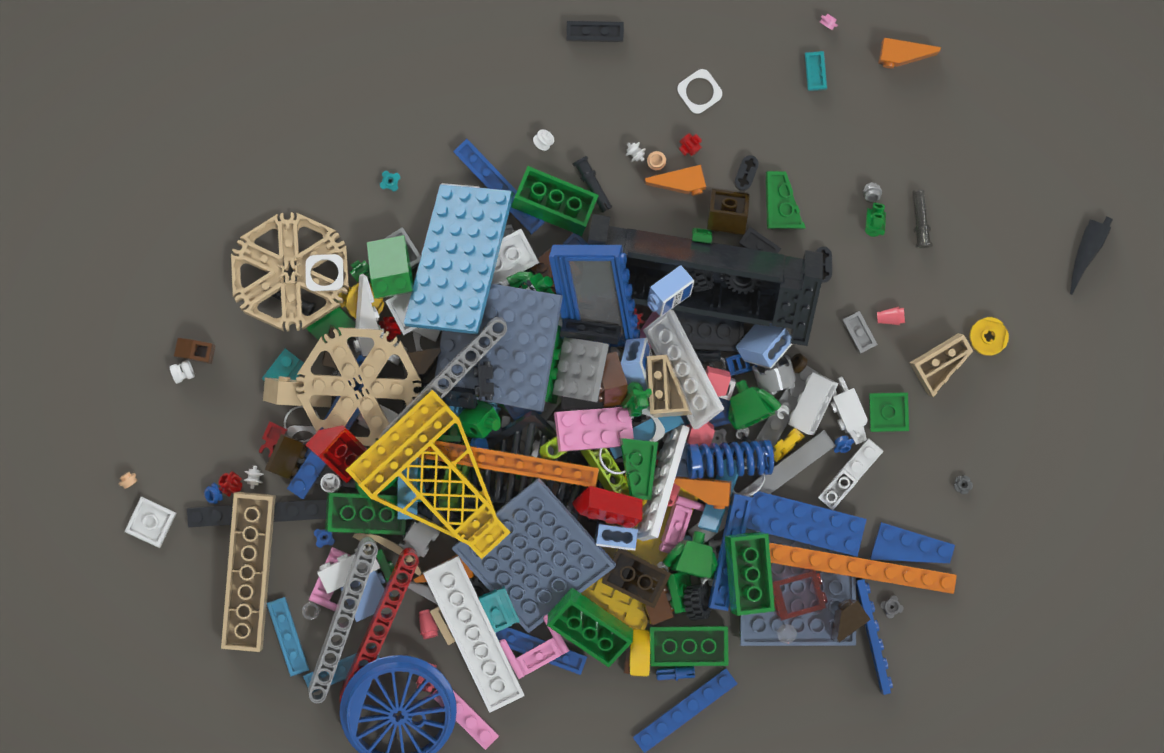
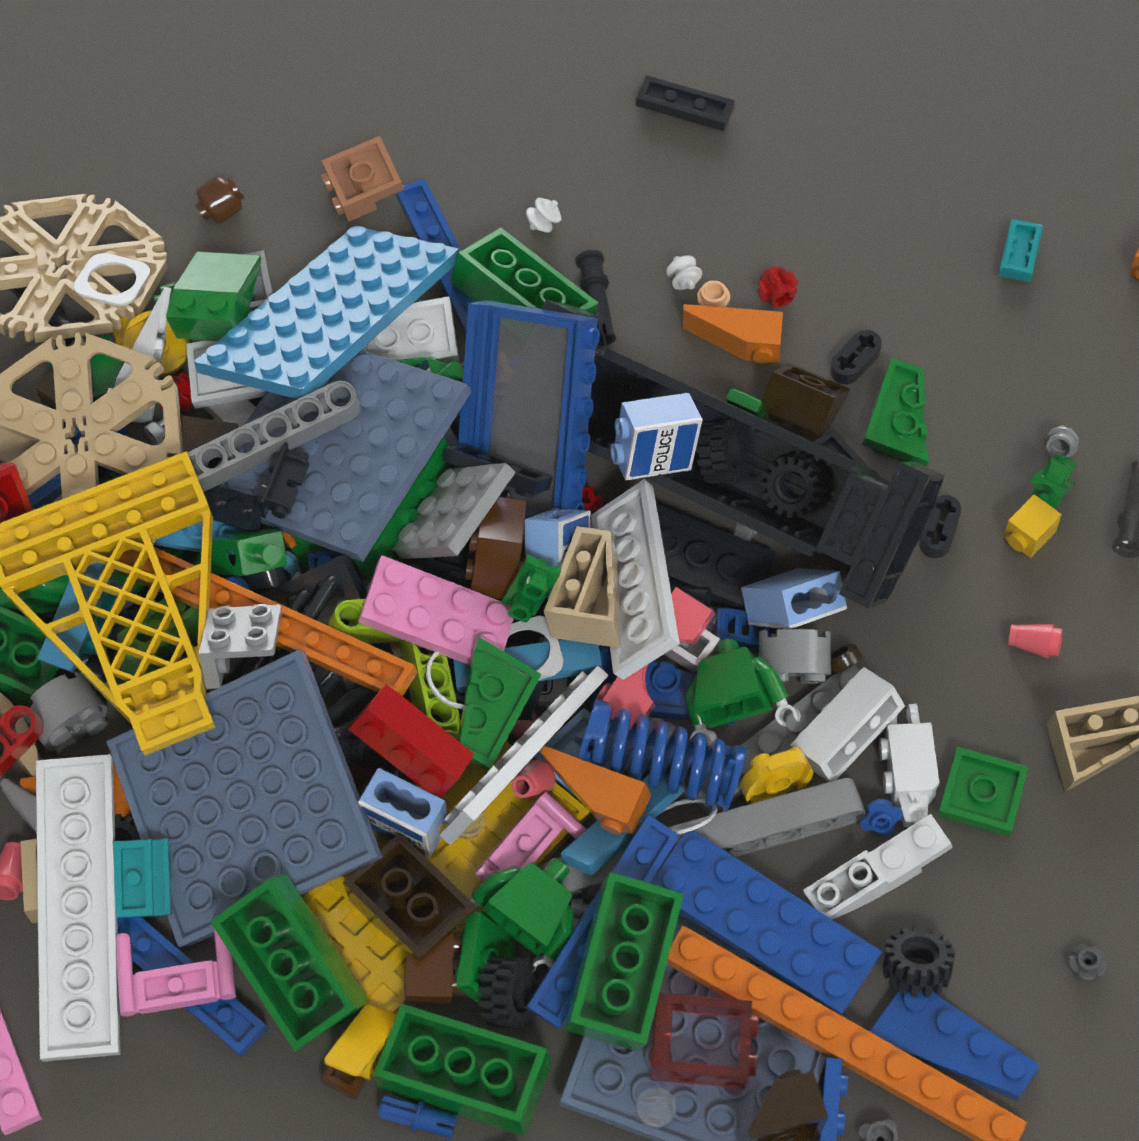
camera: 25 degrees right, 25 degrees down
(356, 192) = (219, 199): none -> reddish brown head
(393, 185) = (279, 203): teal plate -> none
(432, 152) = (360, 178): none -> nougat plate
(503, 481) = (236, 634): none -> light grey bracket
(702, 73) = (808, 251): white piece -> none
(828, 21) = (1064, 191): bright pink plate -> none
(859, 332) = (970, 646): light grey plate -> none
(871, 251) = (1032, 526): none -> yellow brick
(880, 525) = (918, 976): none -> black tyre

